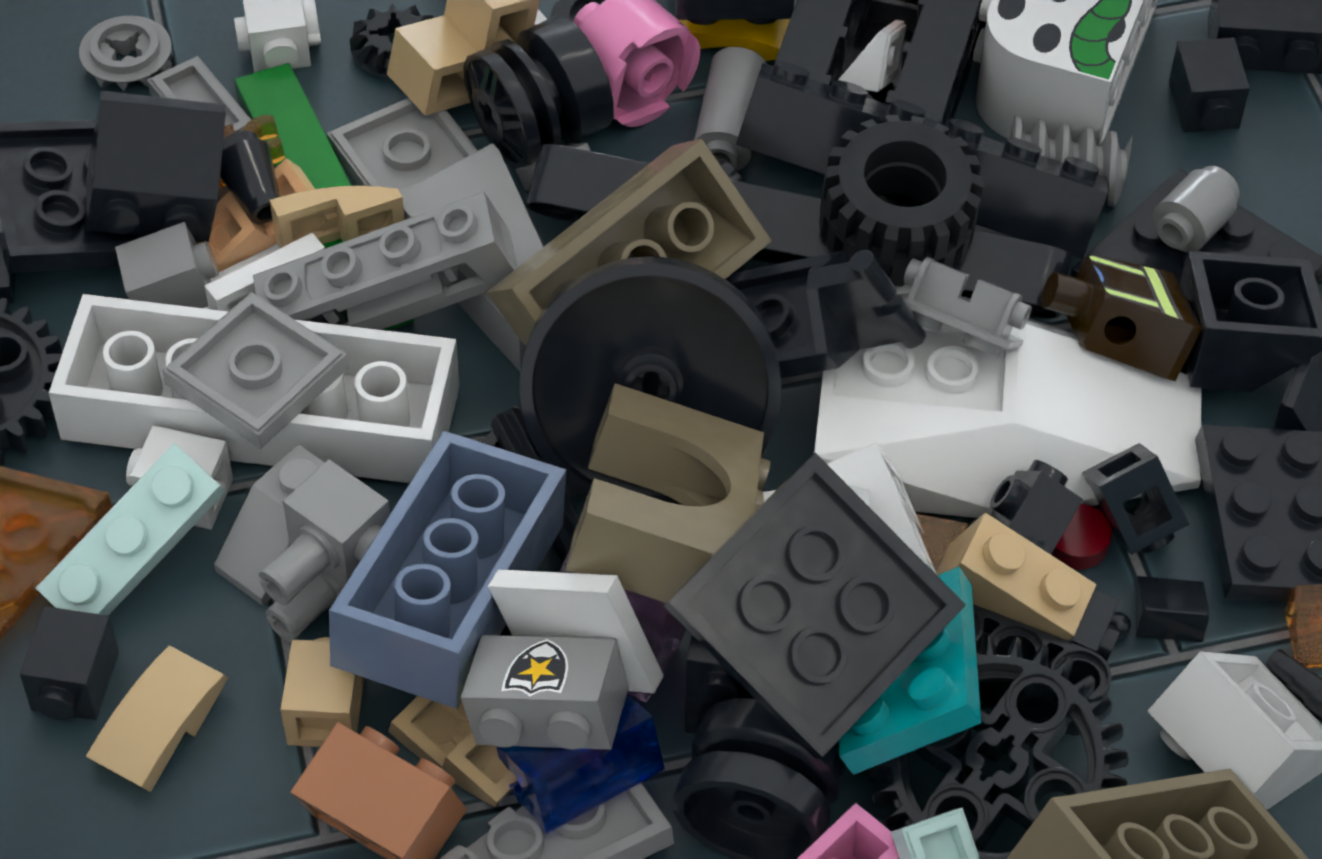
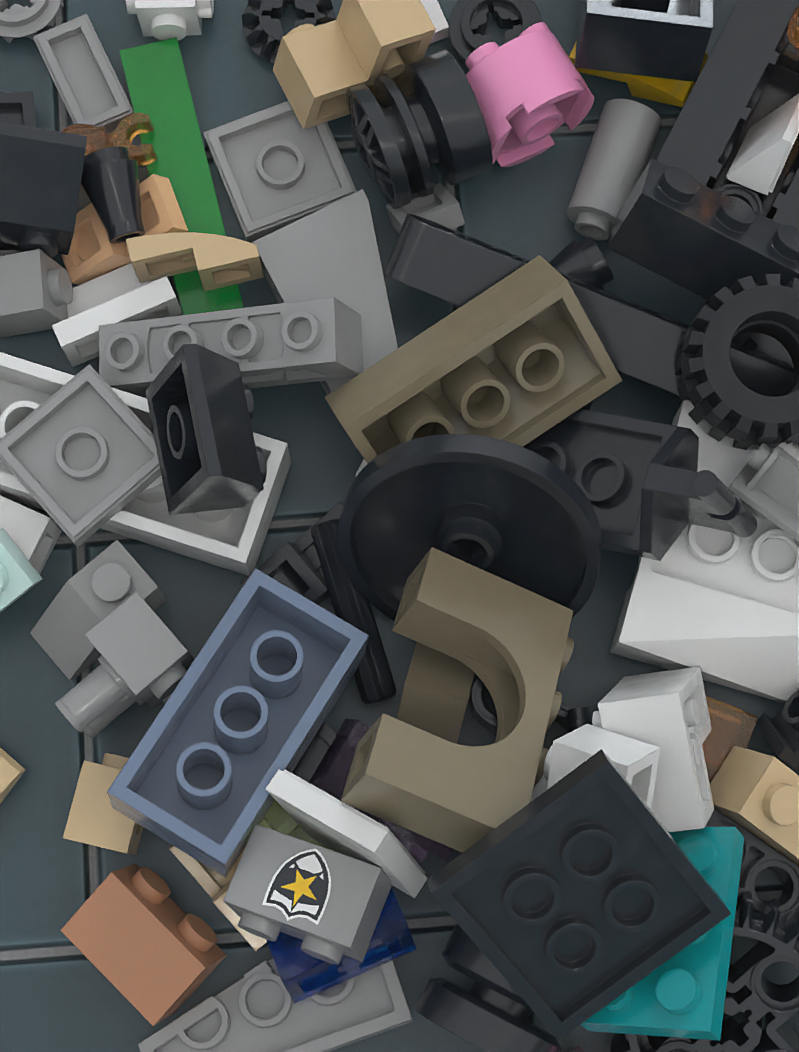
camera: 10 degrees right, 25 degrees up
(375, 316) = (205, 433): none -> black slope

